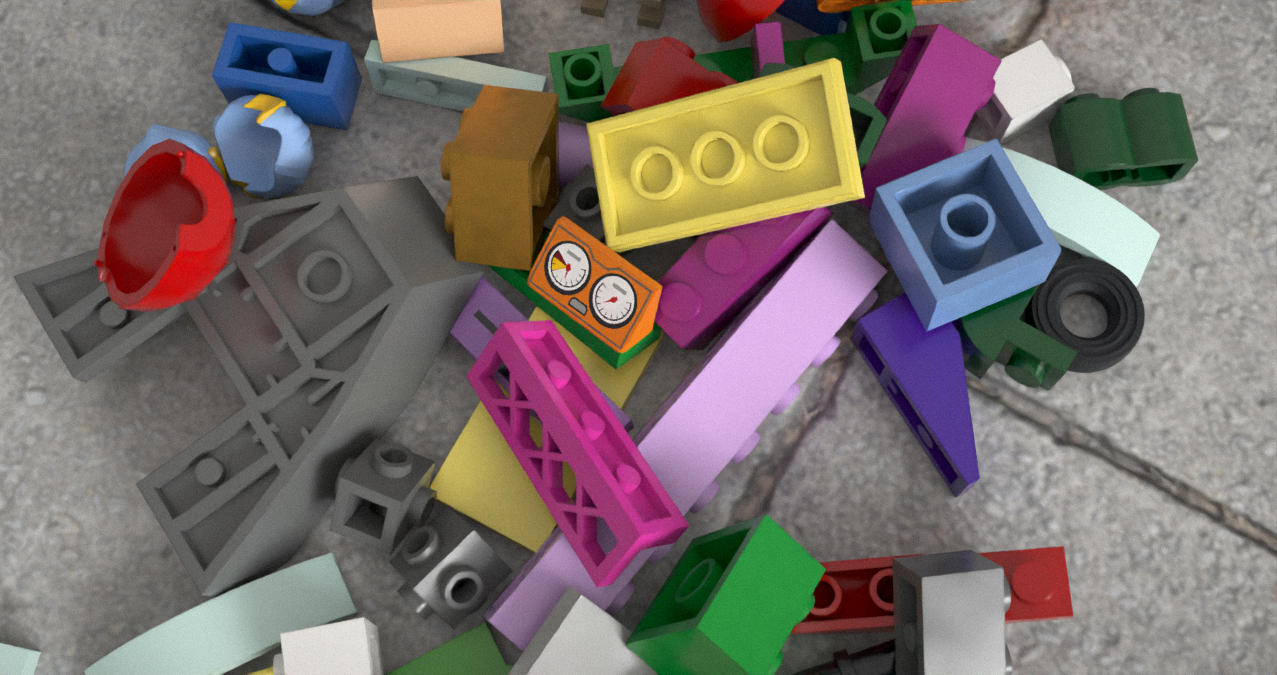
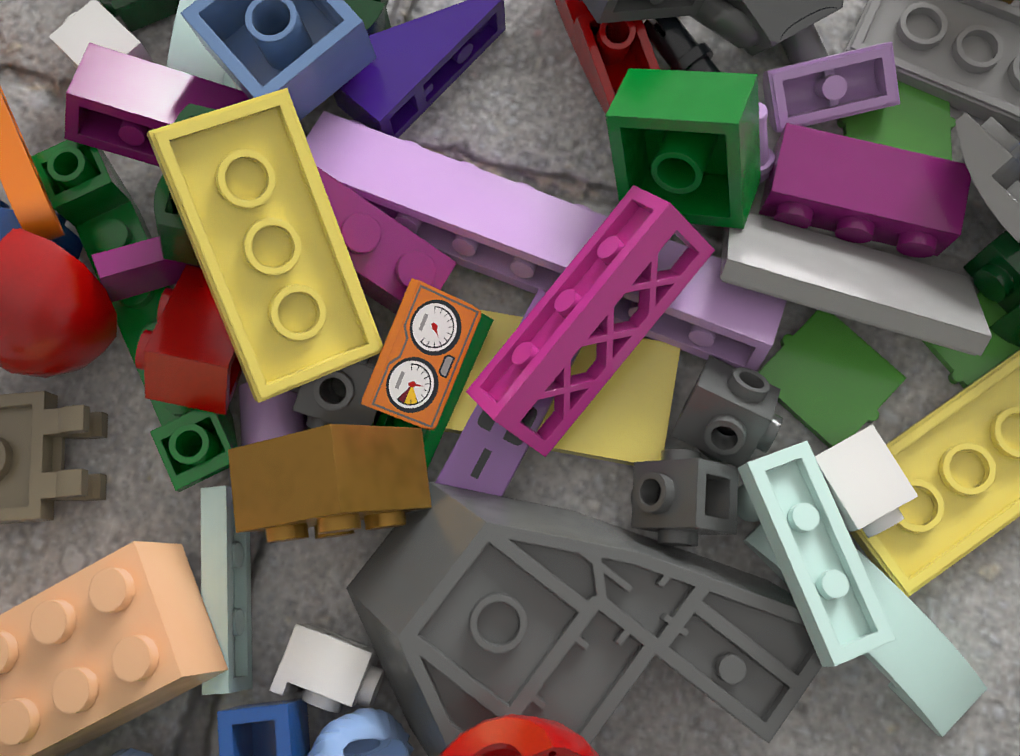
camera: 105 degrees left, 5 degrees up
(275, 583) = (814, 553): none -> light aqua piece
(360, 147) = (329, 669): none -> white brick

